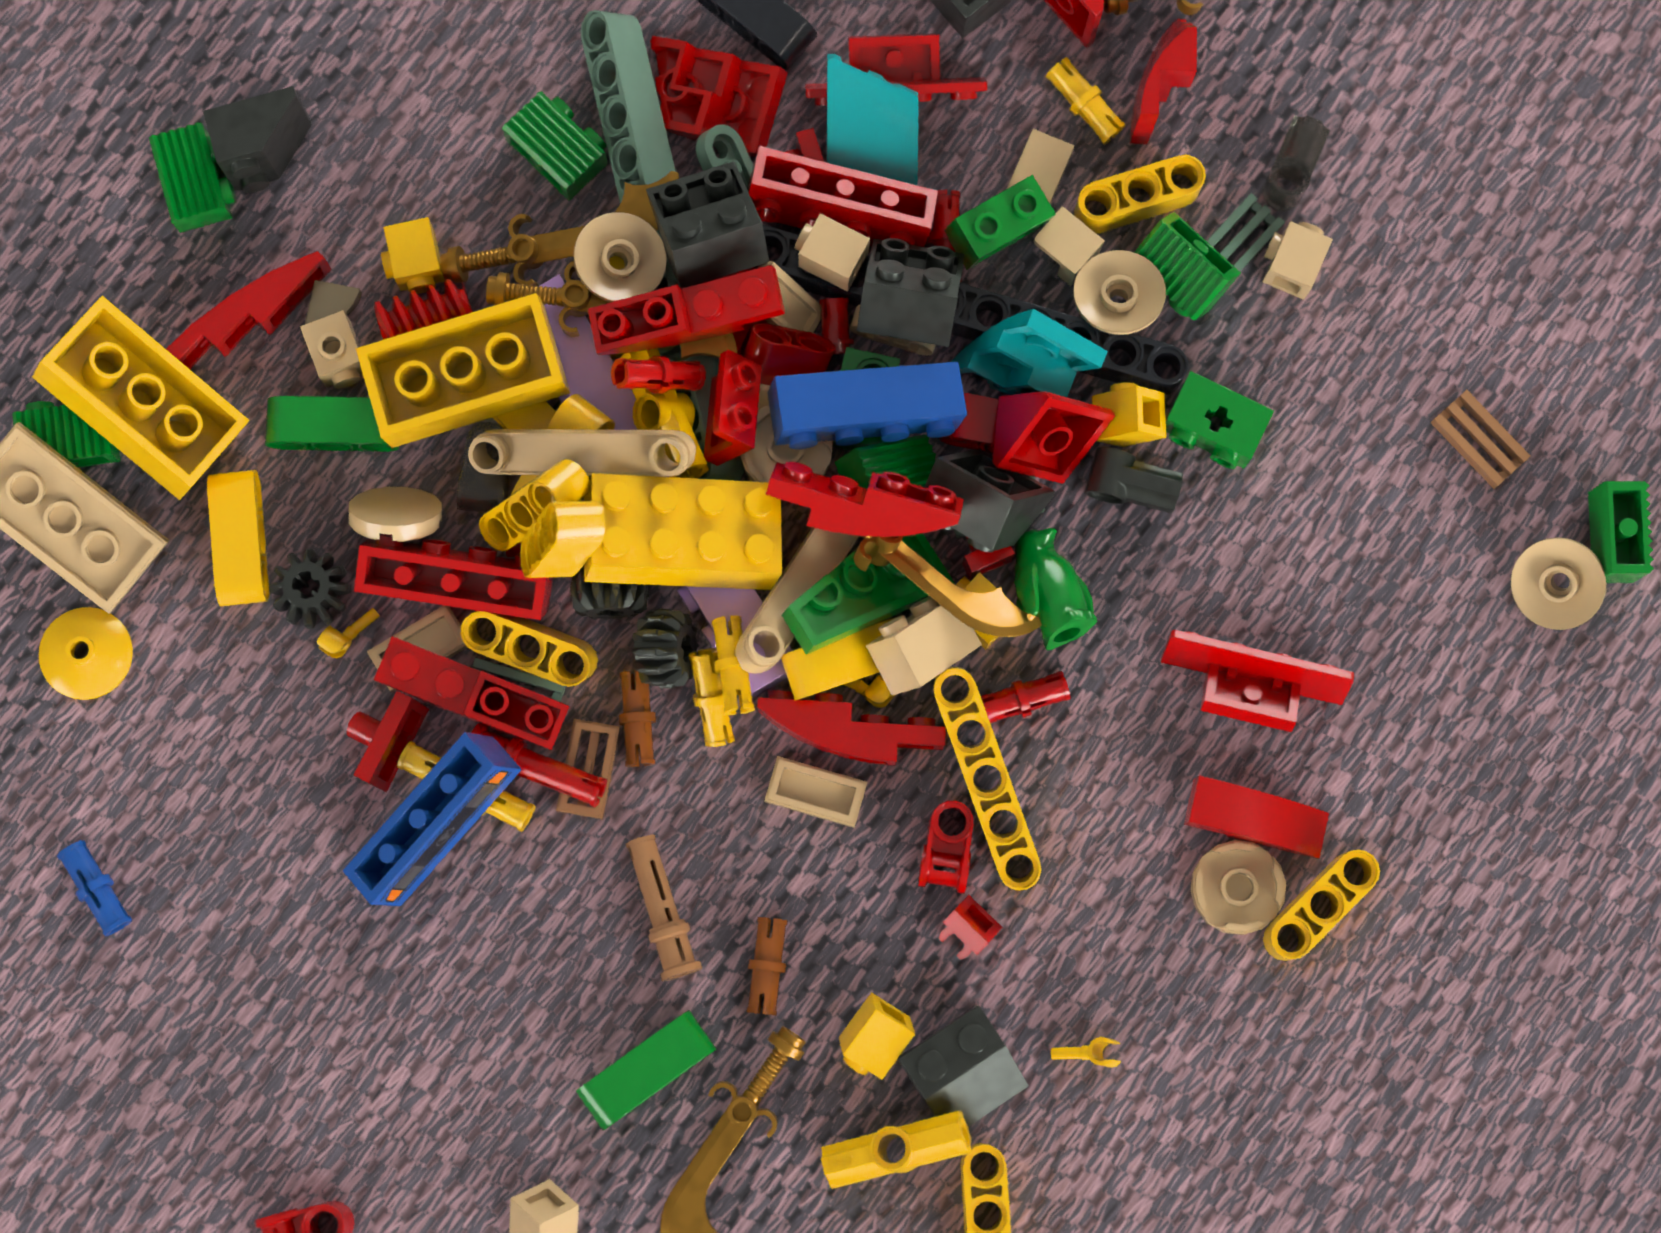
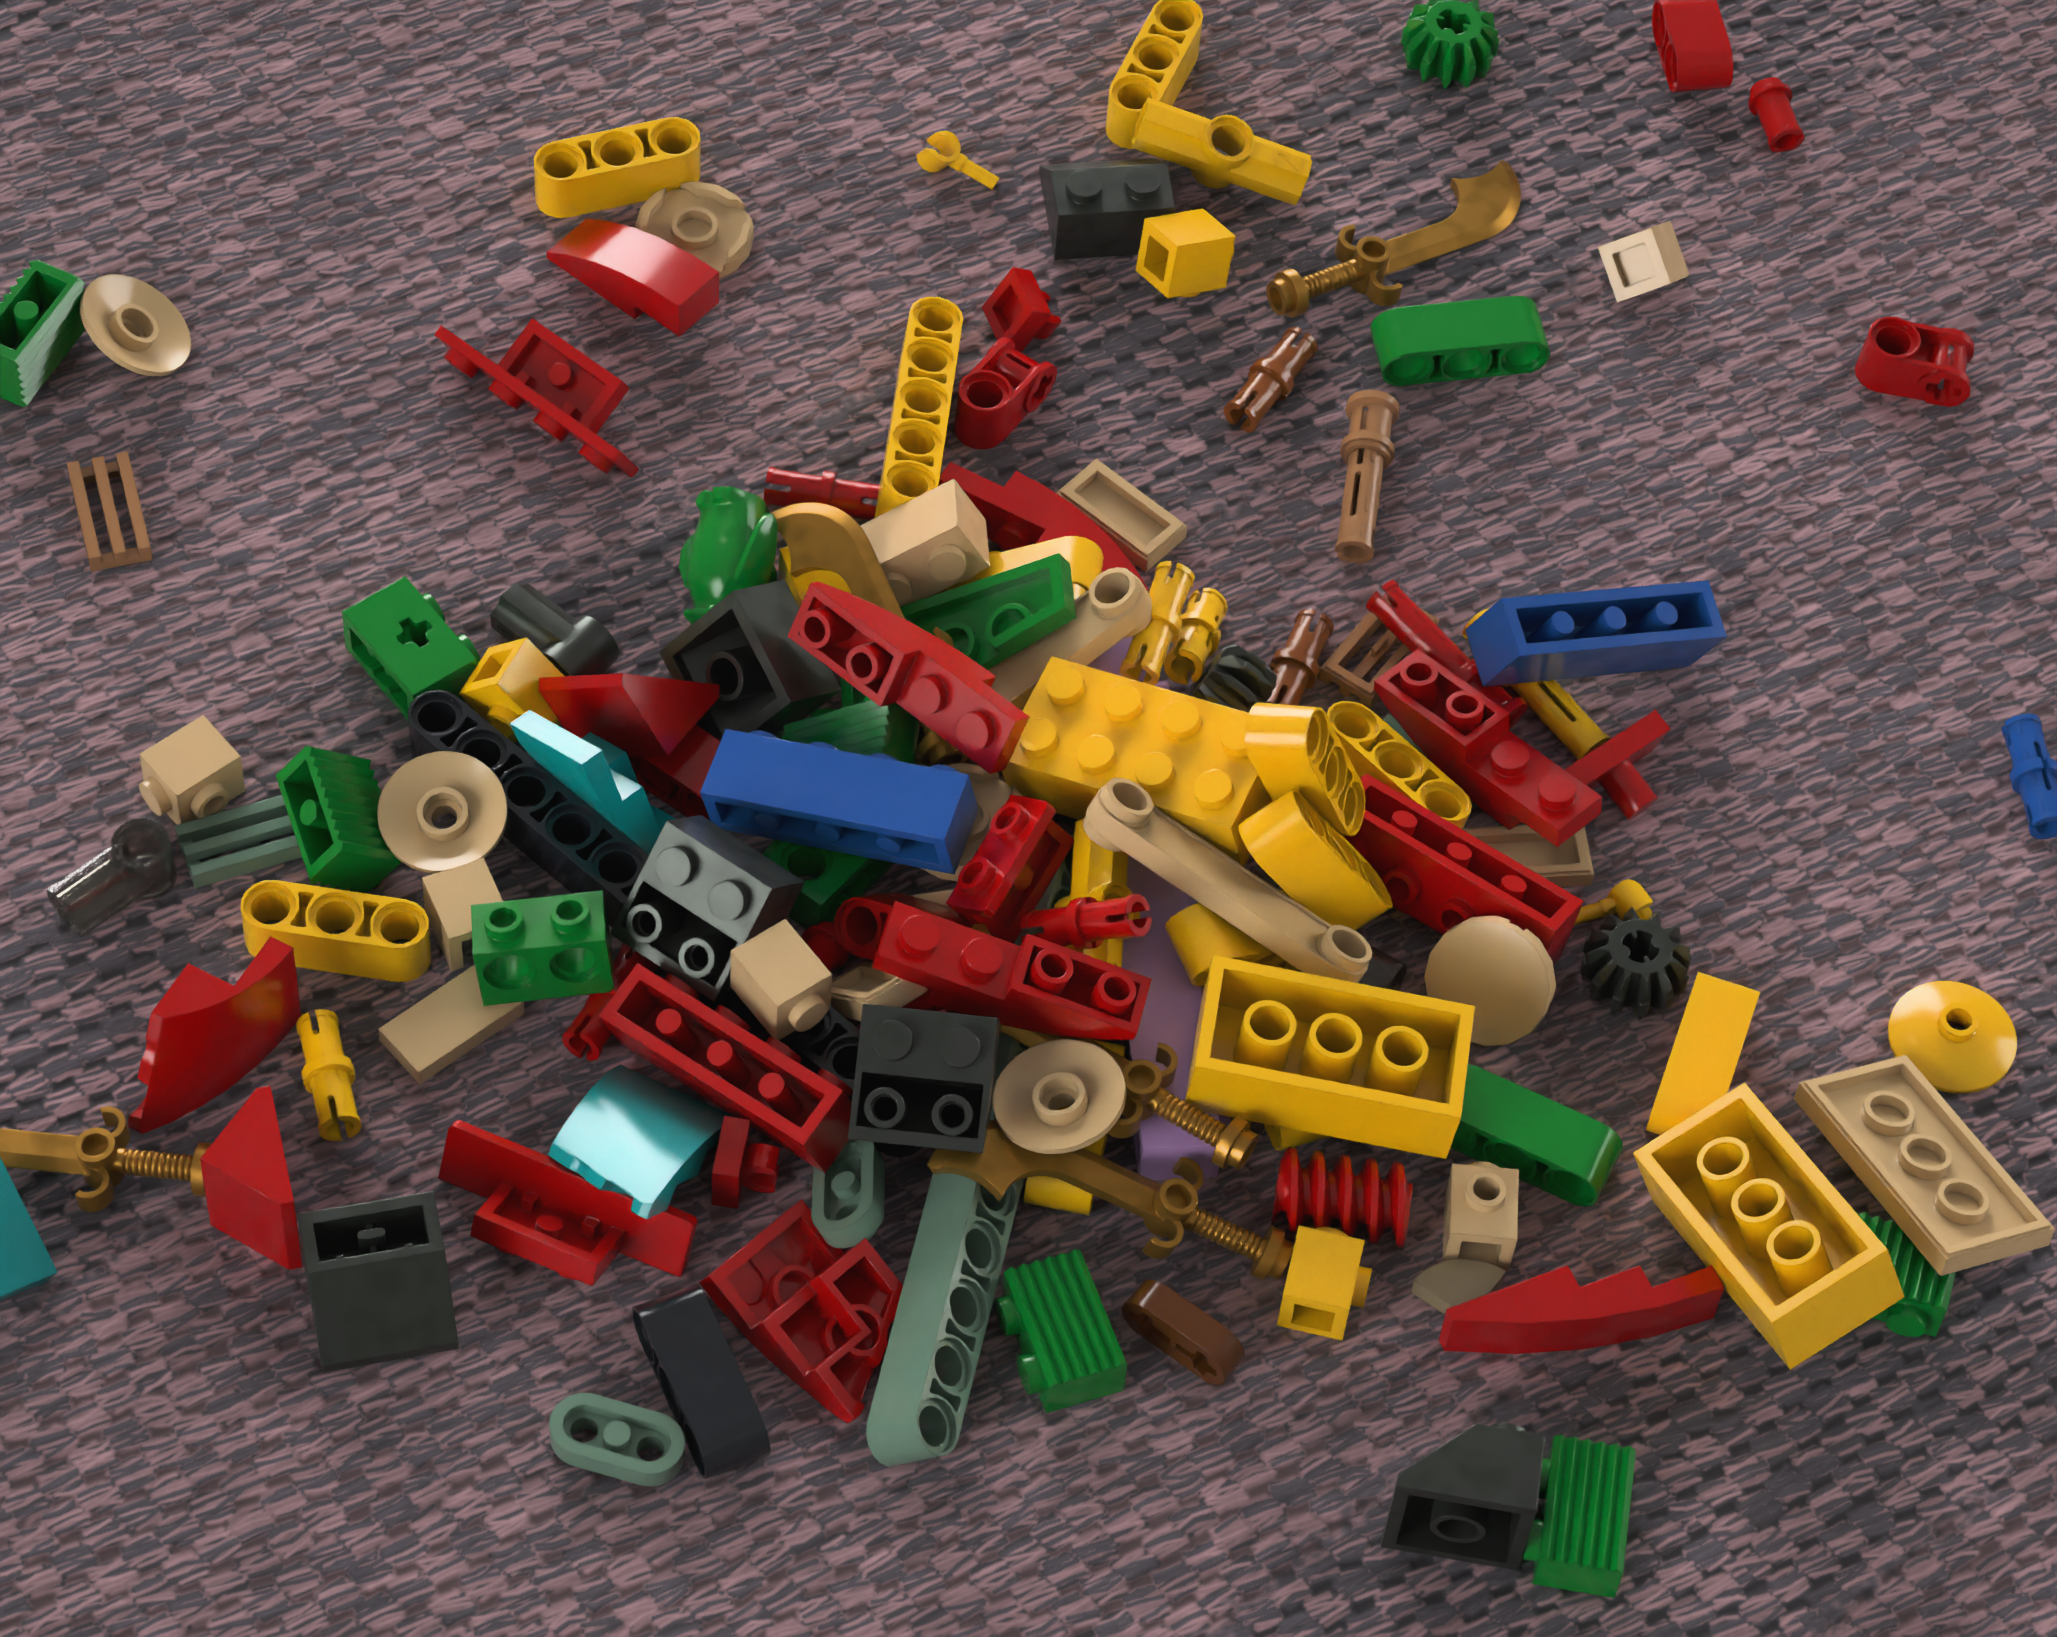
camera: 155 degrees left, 25 degrees down
(483, 182) = (1183, 1331): none -> reddish brown beam

